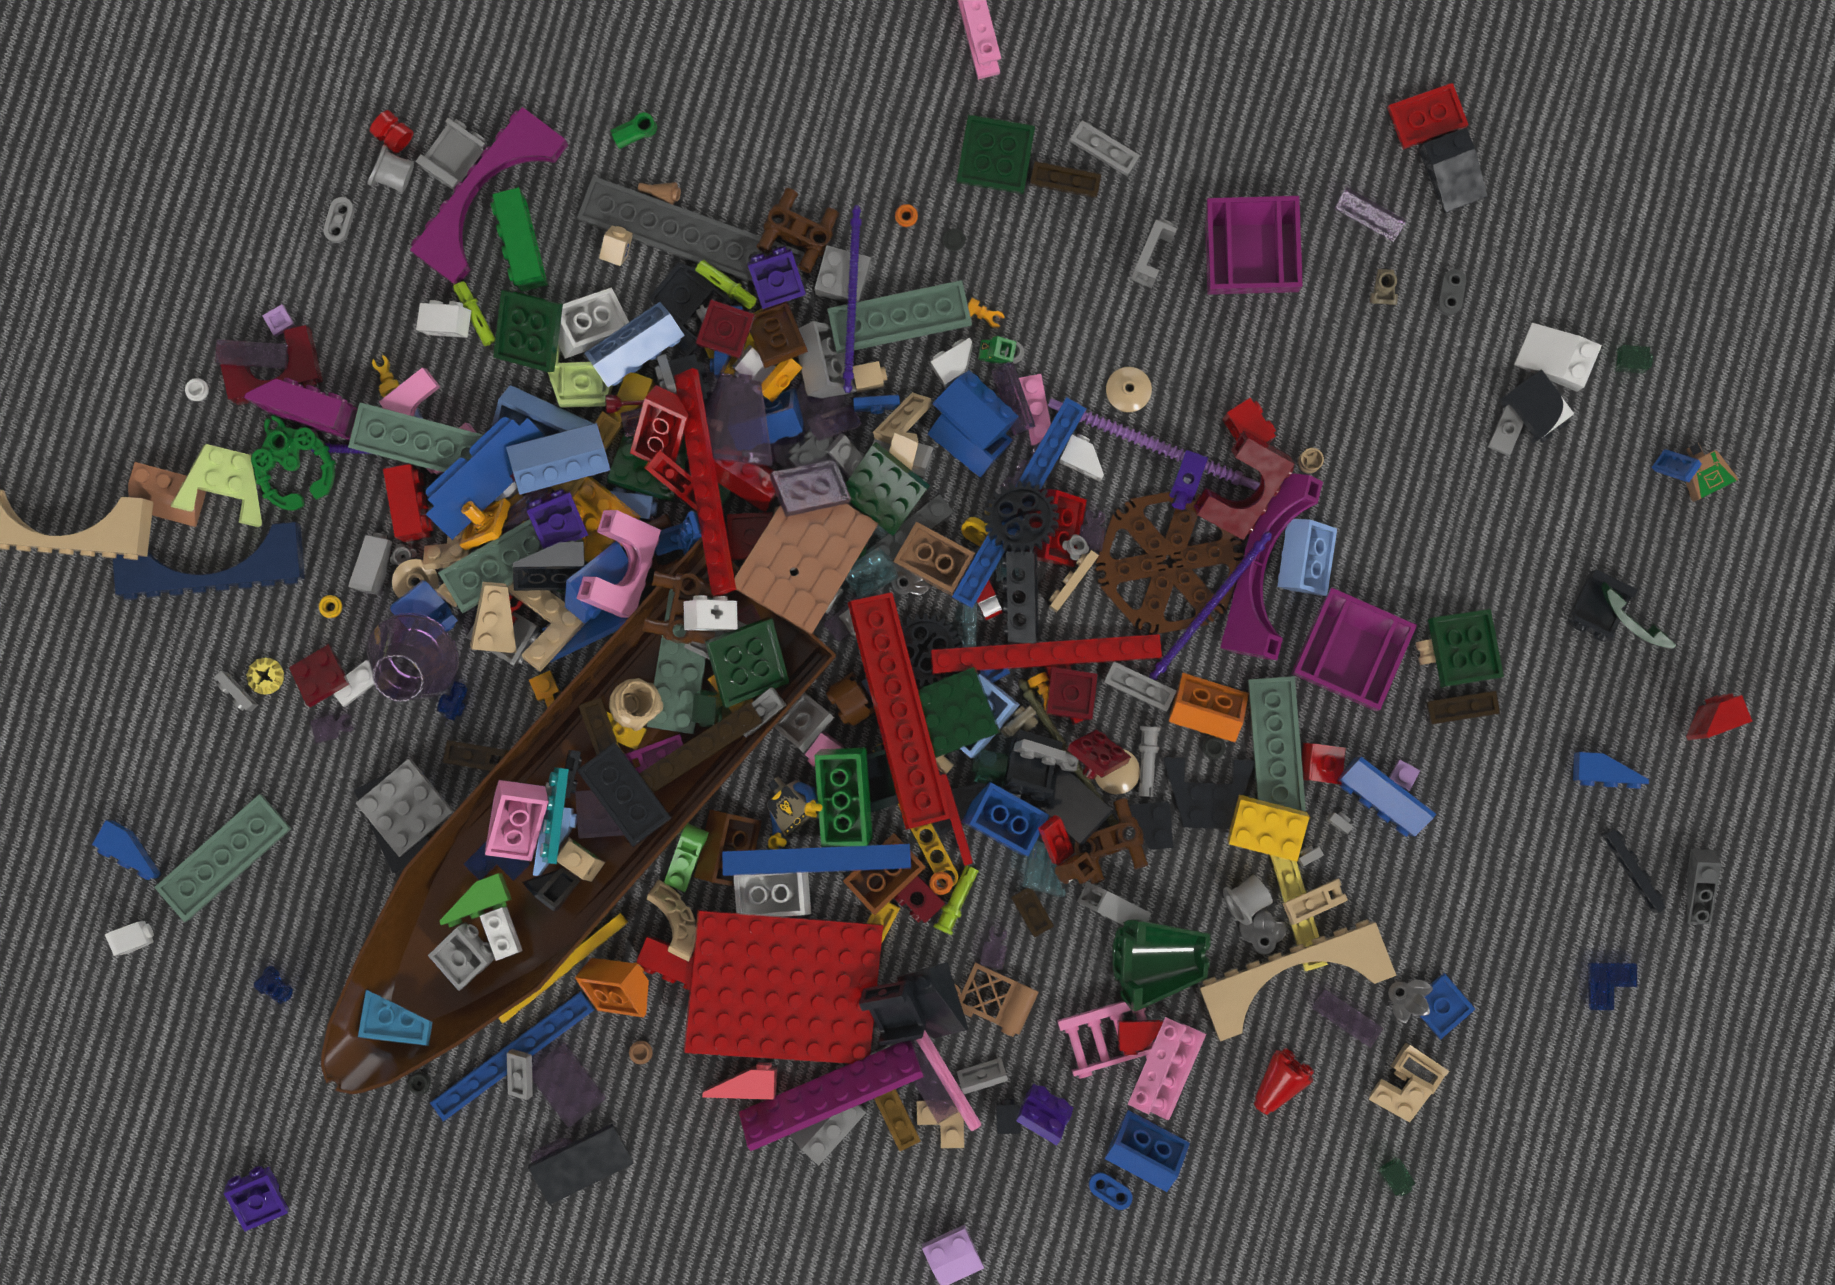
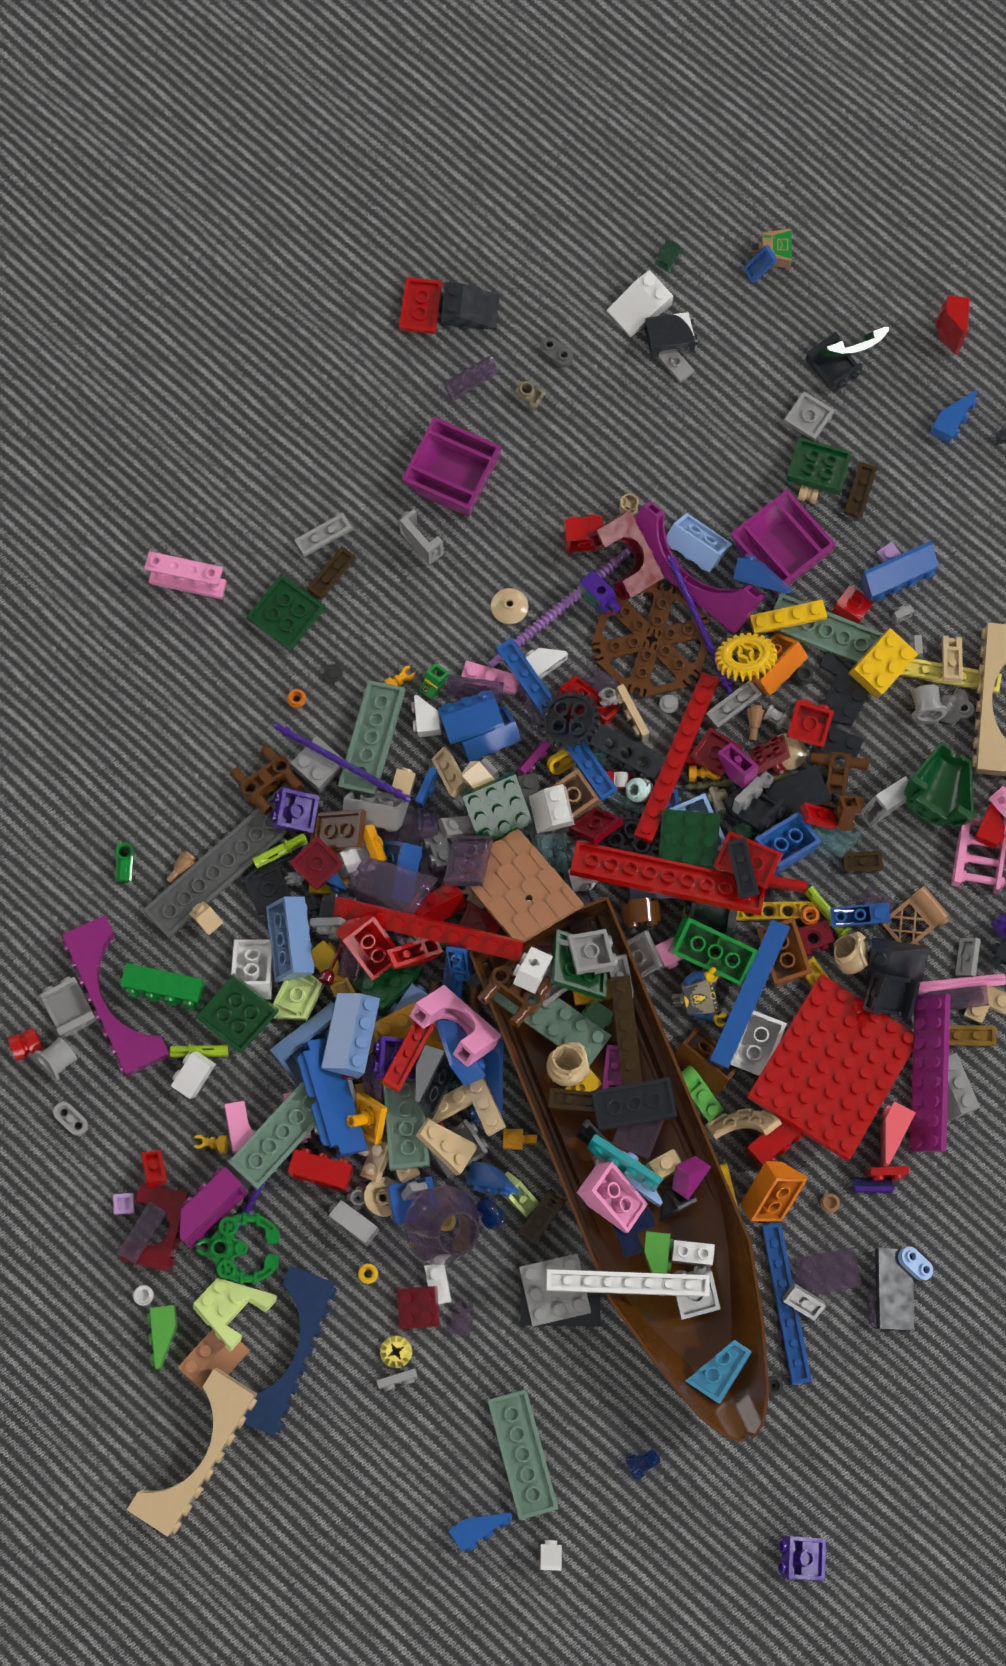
camera: 70 degrees left, 10 degrees down
(171, 427) = (164, 1326): none -> bright green slope
(327, 331) = (153, 1168): none -> red plate
(428, 880) = (627, 1283): none -> white plate
(433, 610) = (413, 1190): none -> light grey plate
(484, 684) = (489, 1178): none -> blue slope
(486, 718) = (525, 1201): none -> yellowish green slope
(559, 529) = (406, 1056): none -> red plate
(575, 890) = (689, 1175): none -> magenta slope
(619, 1175) = (916, 1264): none -> light blue plate
(682, 1088) = (867, 1185): none -> dark purple slope
(705, 1107) = (880, 1173): none -> red plate
(764, 668) = (592, 952): none -> light grey plate
(915, 548) = (551, 809): none -> white slope
(919, 947) = (851, 953): none -> tan helmet
(922, 604) = (595, 825): none -> dark red plate
(945, 786) = (743, 868): none -> black plate
(957, 498) = (538, 752): none -> magenta plate
(961, 786) = (763, 858): none -> red plate
(967, 938) = (860, 915): none -> blue slope
(988, 631) = (639, 790): none -> light aqua head
(1065, 724) = (738, 765): none -> magenta slope
(1104, 616) = (668, 703): none -> light grey plate
(1137, 717) = (755, 717): none -> medium nougat cone
(1157, 780) = (810, 723): none -> red plate
(1180, 679) = (746, 662): none -> yellow gear
(1269, 698) = (788, 617): none -> yellow plate
(1297, 642) = (757, 573): none -> blue slope
(1522, 608) = (809, 416): none -> light grey plate

